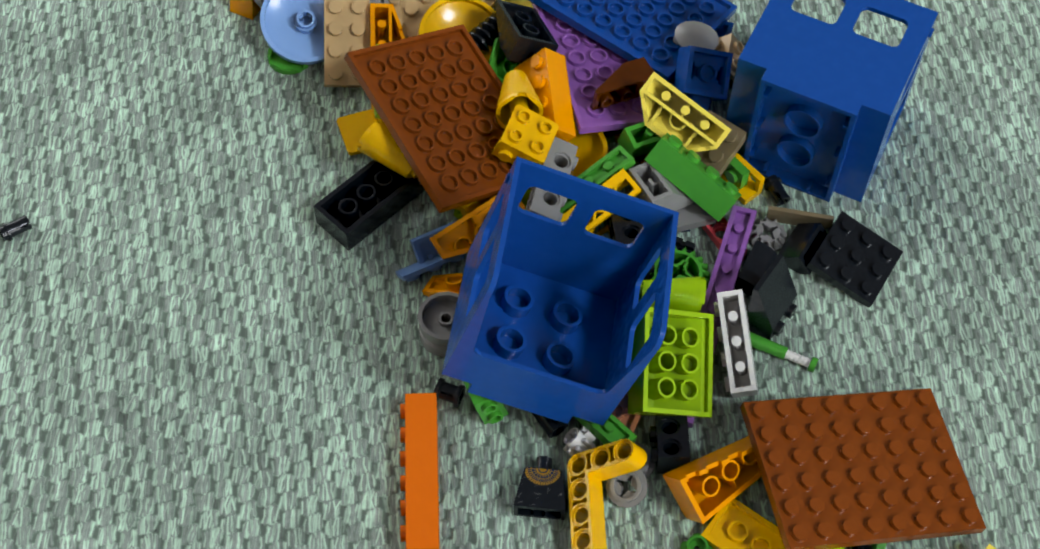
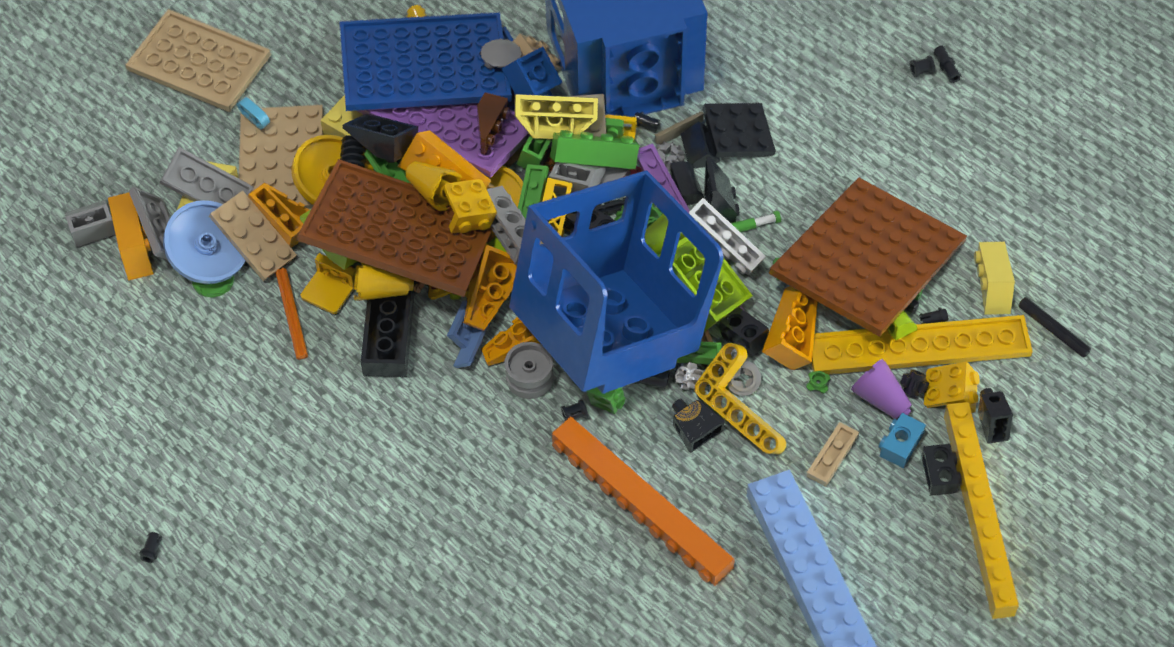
camera: 40 degrees left, 0 degrees up
(316, 128) = (291, 314): none -> orange axle

